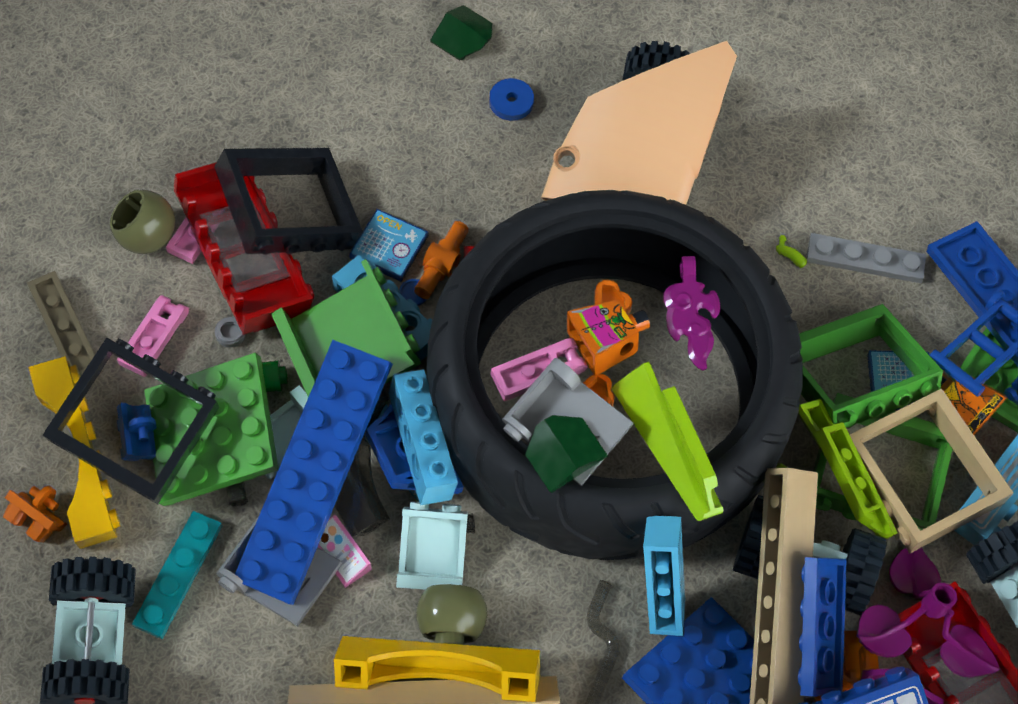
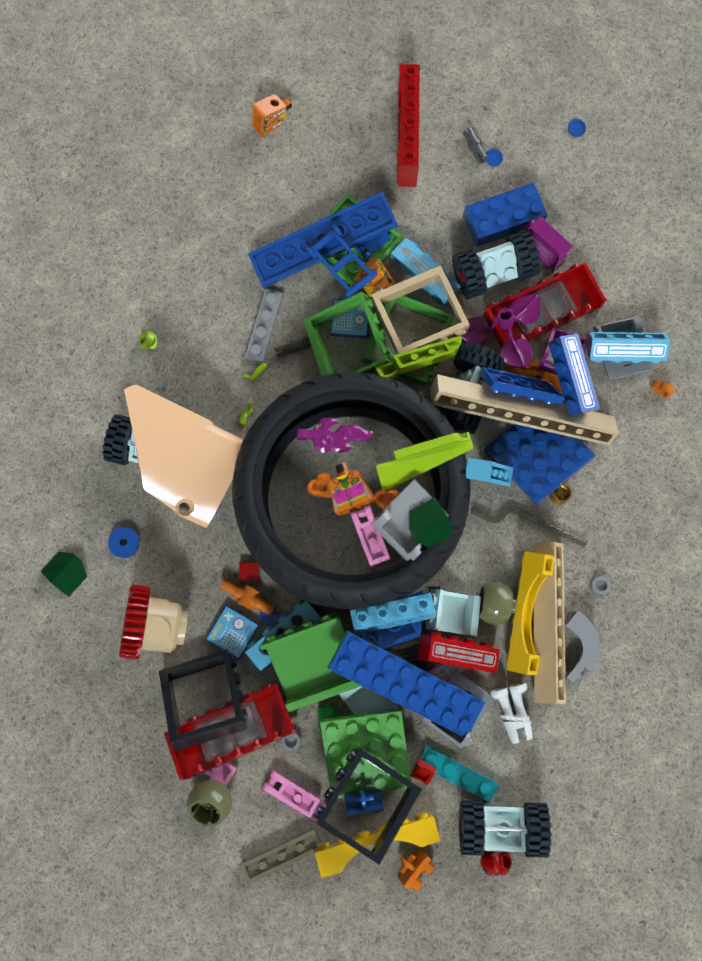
camera: 80 degrees left, 15 degrees up
(36, 631) = (496, 863): none -> red head
(181, 518) = (423, 772): none -> red tile
(260, 651) = (512, 721): none -> white piece
(365, 555) = (458, 653): none -> red brick
(394, 122) = (151, 624): none -> piece
(816, 102) = (147, 339): none -> lime tile
(836, 295) = (292, 347): none -> clear smoke pin

